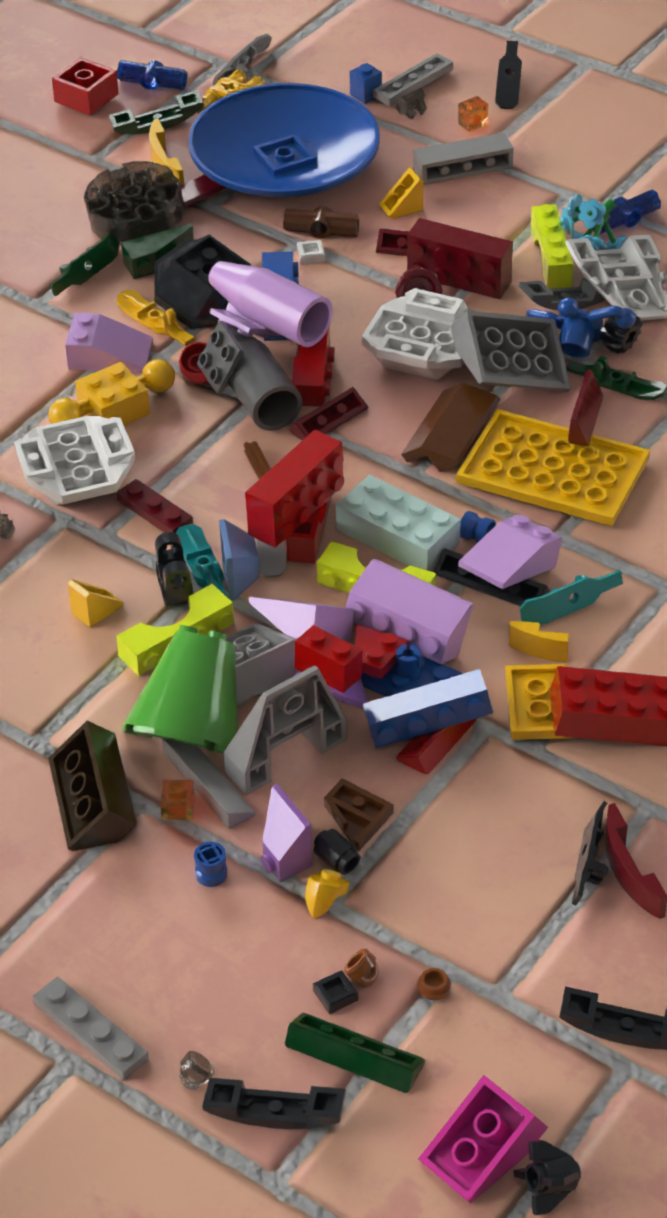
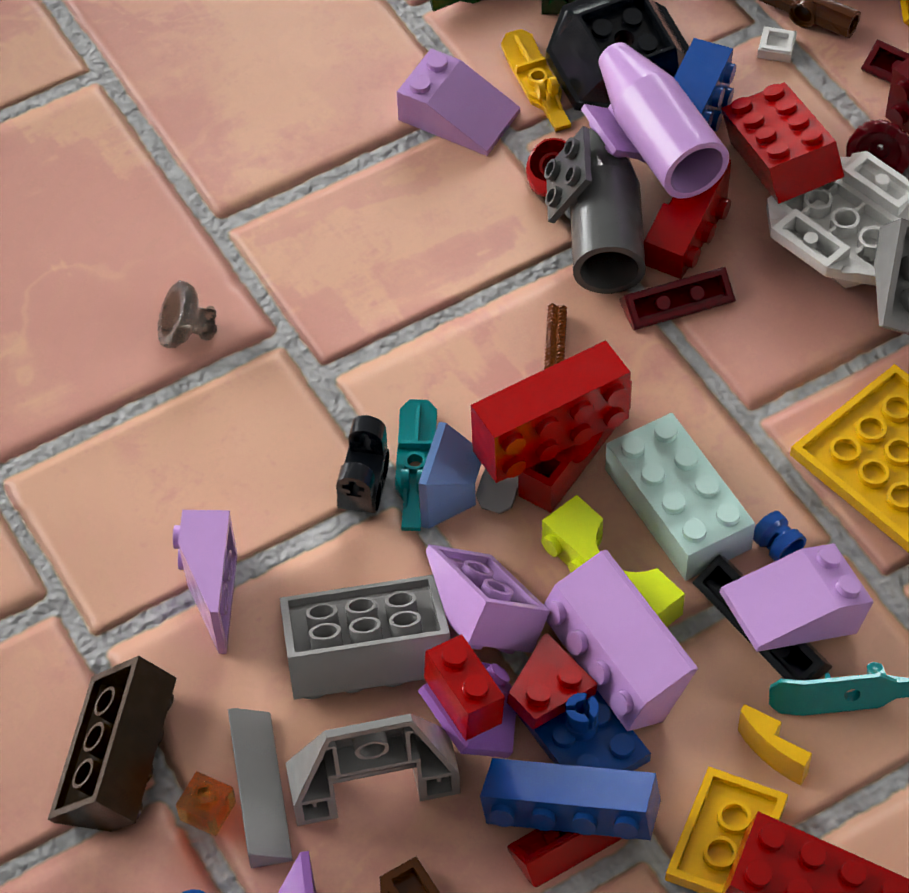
camera: 25 degrees right, 10 degrees up
(76, 458) = (326, 260): white piece -> none
(91, 602) = (253, 471): yellow slope -> none
(100, 662) = (209, 561): none -> lavender slope
(115, 393) = (422, 181): yellow brick -> none
(145, 644) = (285, 564): neon yellow arch -> none
(153, 507) = (396, 358): dark red plate -> none
(190, 693) = (281, 667): bright green cone -> none
(360, 298) = (782, 142): none -> red brick
(451, 426) = (823, 369): reddish brown slope -> none

